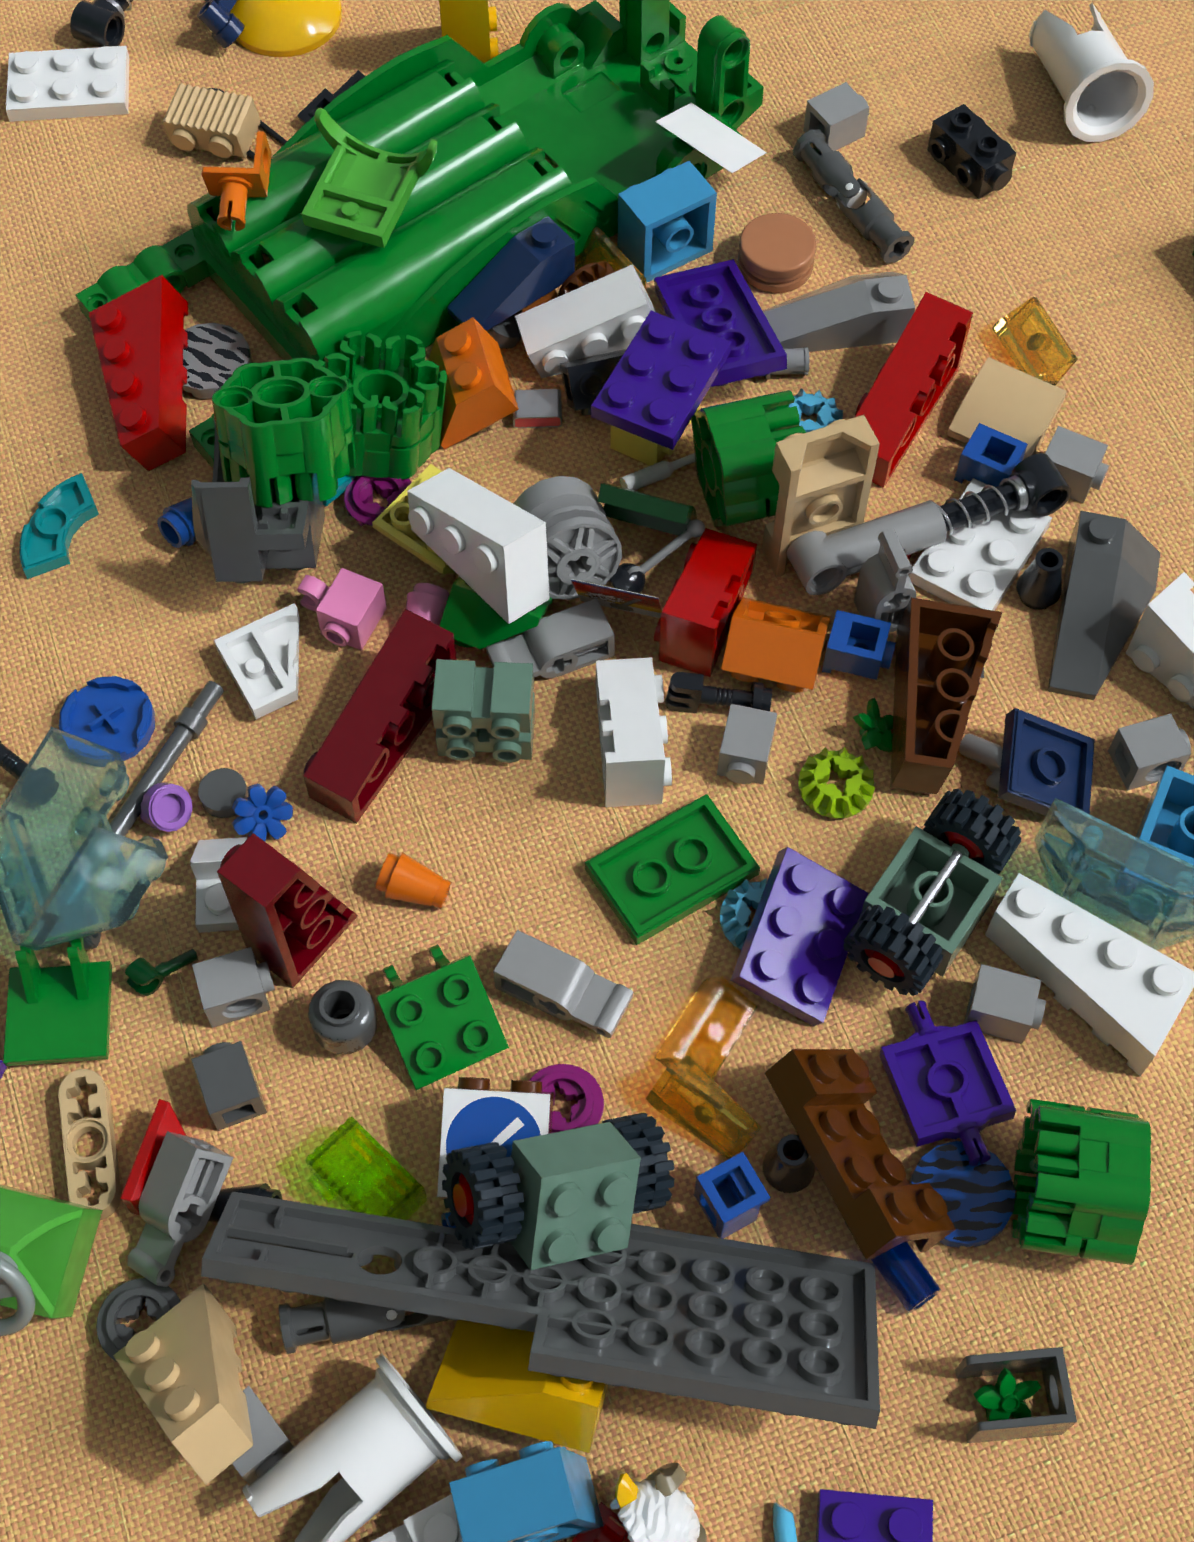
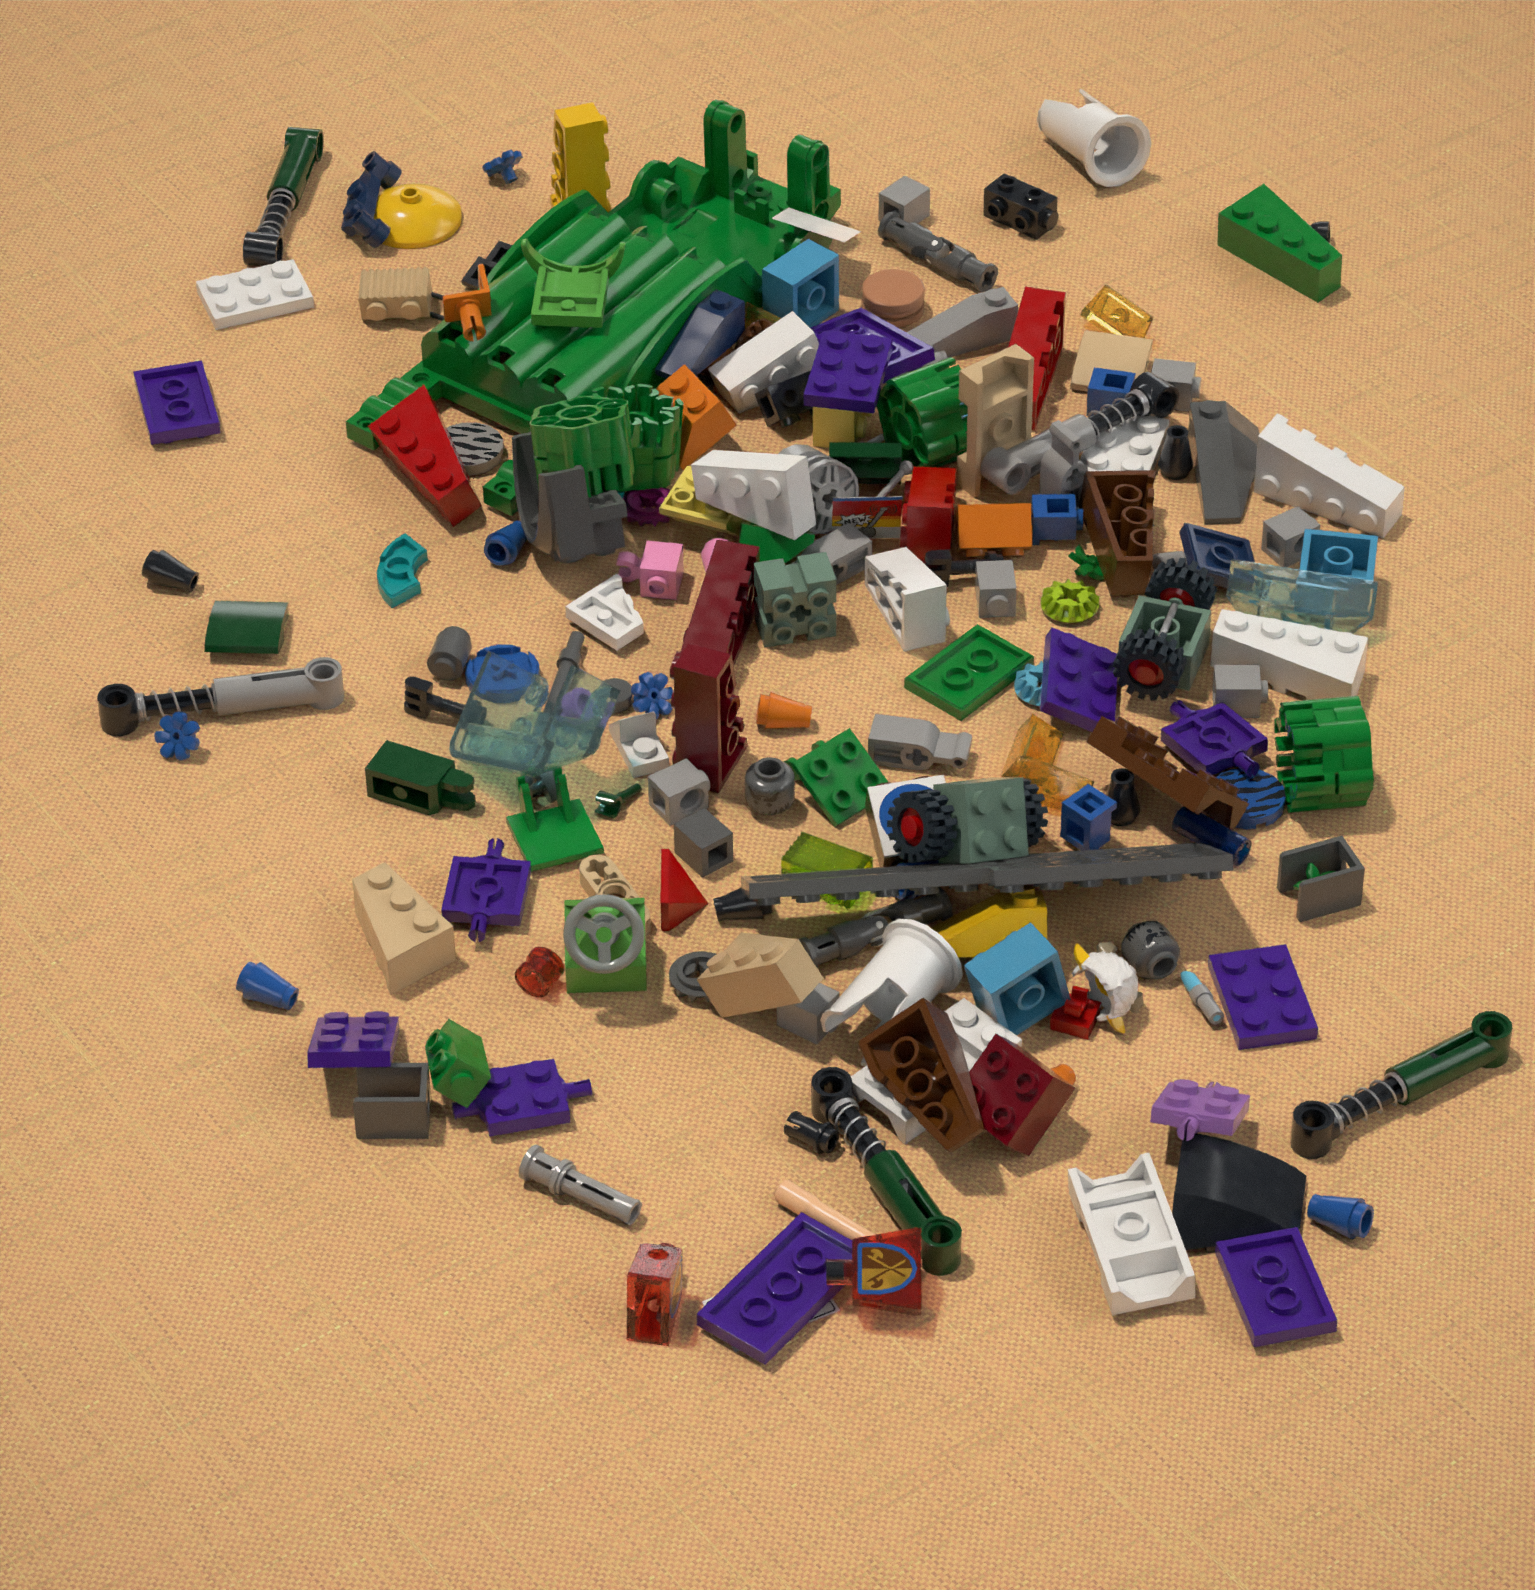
camera: 15 degrees left, 20 degrees down
(50, 679) = (449, 653): none -> dark grey brick
(176, 1203) = (700, 899): light grey piece -> none
(538, 408) = (749, 430): flat silver piece -> none
(741, 1461) = (1150, 950): none -> dark grey head

